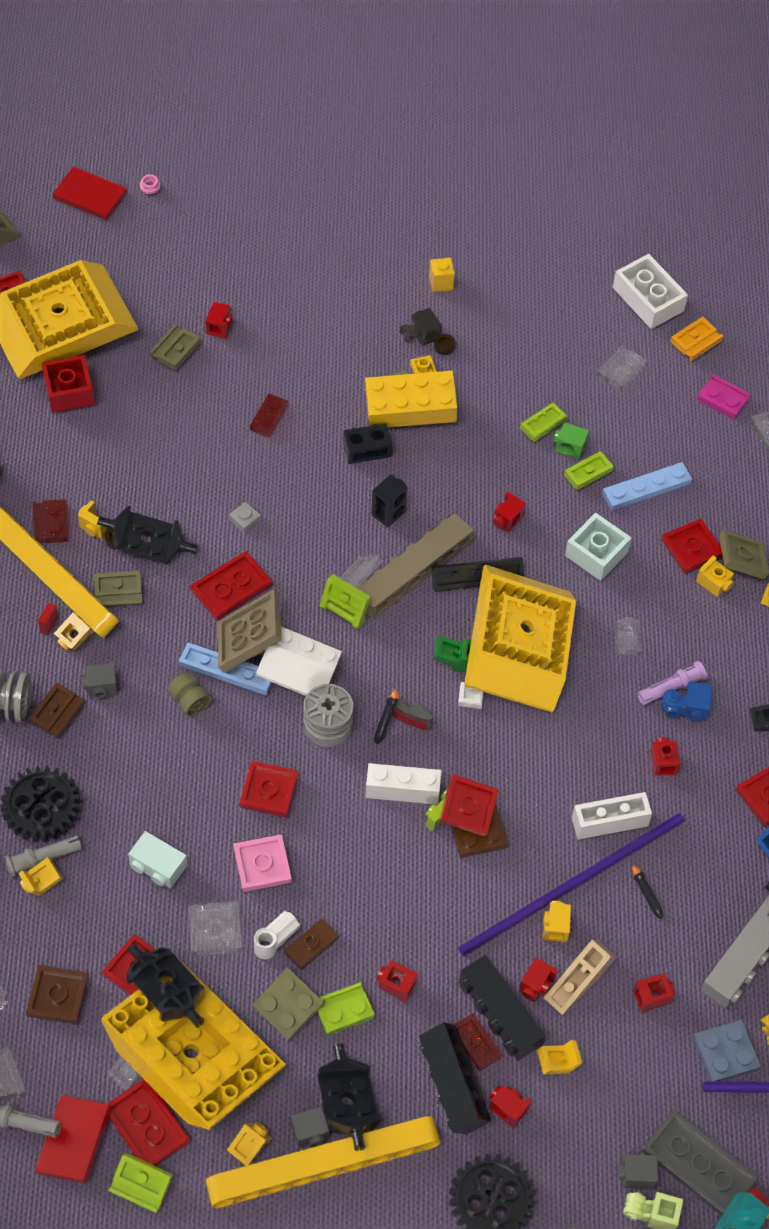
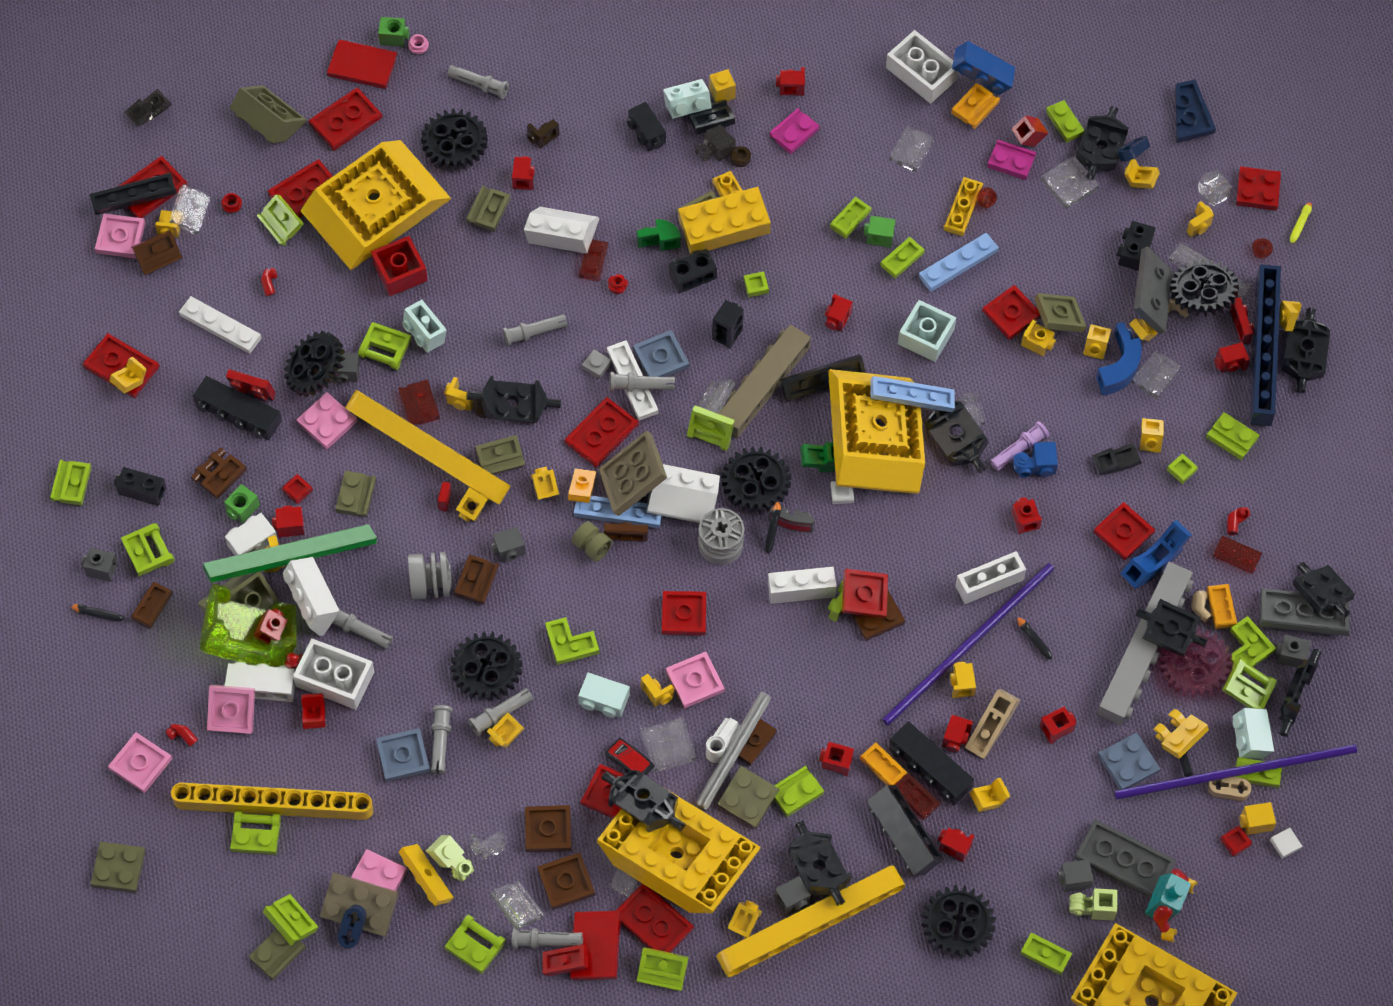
camera: 10 degrees left, 5 degrees up
(33, 1149) = (565, 960): none -> red plate
(34, 452) = (385, 339): none -> lime plate
(58, 239) = (345, 119): none -> red tile
(60, 1058) = (566, 881): none -> reddish brown plate
(75, 445) = (424, 326): none -> light aqua brick
(127, 168) = (386, 29): none -> bright green brick
(133, 800) = (569, 647): none -> lime plate
(156, 625) = (544, 483): none -> yellow bracket
(159, 276) = (454, 139): none -> black gear
(168, 934) = (628, 757): none -> slope
(178, 471) = (524, 331): none -> light grey pin
(194, 635) = (582, 485): none -> light orange plate
(206, 231) = (487, 83): none -> light grey pin
(215, 868) = (652, 690): none -> yellow bracket
(229, 691) = (626, 532): none -> reddish brown plate
(241, 379) = (560, 229): none -> white slope
(251, 287) = (544, 134): none -> dark brown bracket
(273, 539) = (632, 382): none -> light grey pin
(277, 540) = (624, 362): none -> white plate
(283, 949) = (733, 751): none -> light grey axle
(287, 447) = (617, 288): none -> red plate
(313, 521) = (661, 355): none -> sand blue plate
(346, 403) = (663, 233): none -> green brick
(356, 298) = (647, 126): none -> black brick
(359, 666) = (737, 485): none -> black gear
(403, 279) = (687, 98): none -> light aqua brick
(422, 299) = (710, 118): none -> black plate
(429, 468) = (756, 284): none -> lime plate
(447, 998) = (883, 765): none -> light orange plate
(505, 330) = (794, 131): none -> dark pink plate
(513, 283) = (791, 82): none -> red brick
(566, 605) = (912, 394): none -> light blue plate
(609, 673) = (966, 446): none -> black plate
(663, 433) = (959, 214): none -> yellow tile
(694, 428) = (990, 199): none -> clear red plate
(712, 301) = (983, 67): none -> blue brick
(747, 371) = (1029, 131): none -> red brick

